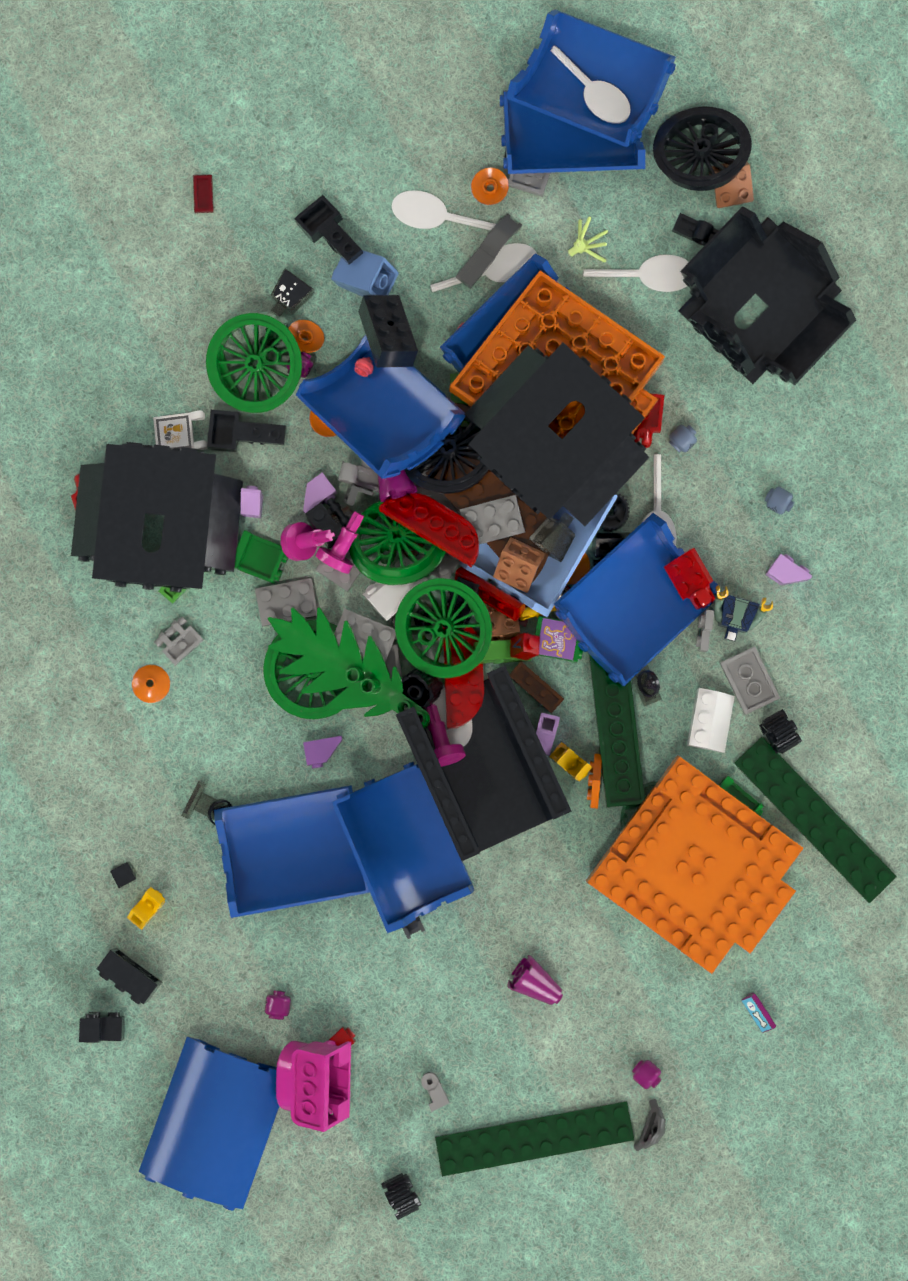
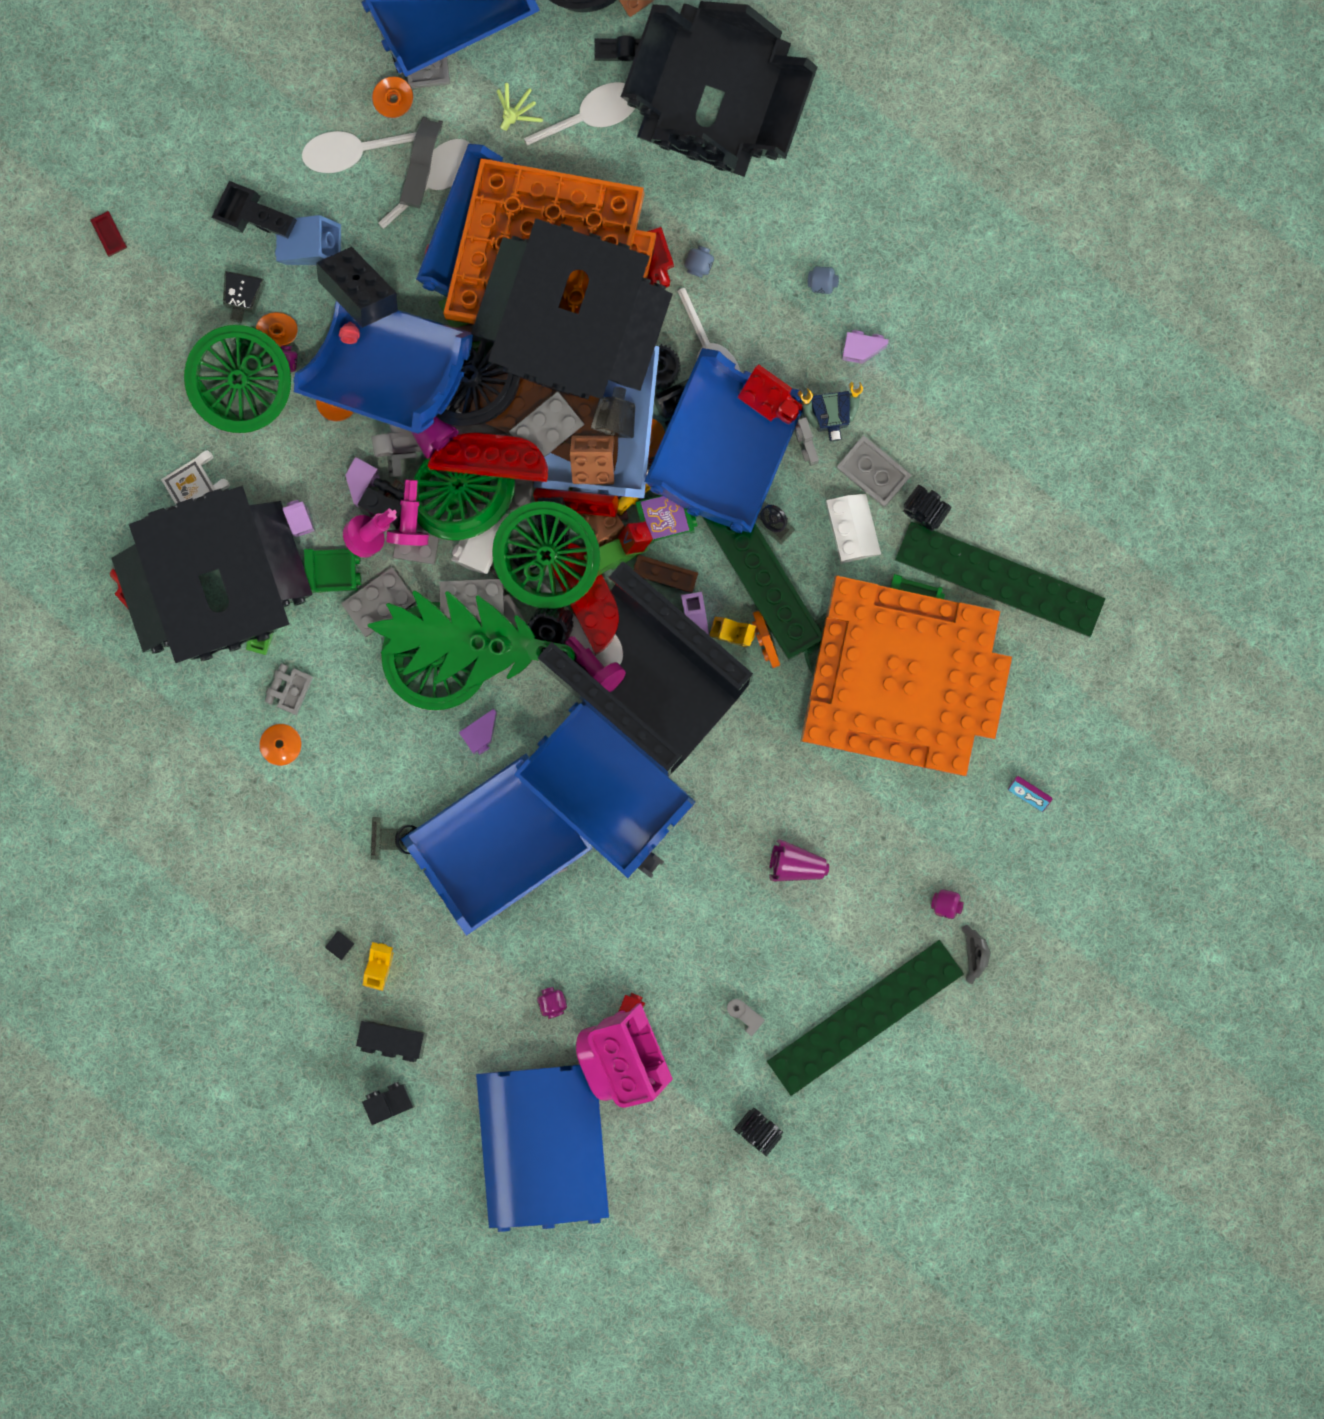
camera: 15 degrees left, 0 degrees up
(228, 430) = (241, 458): black plate -> none

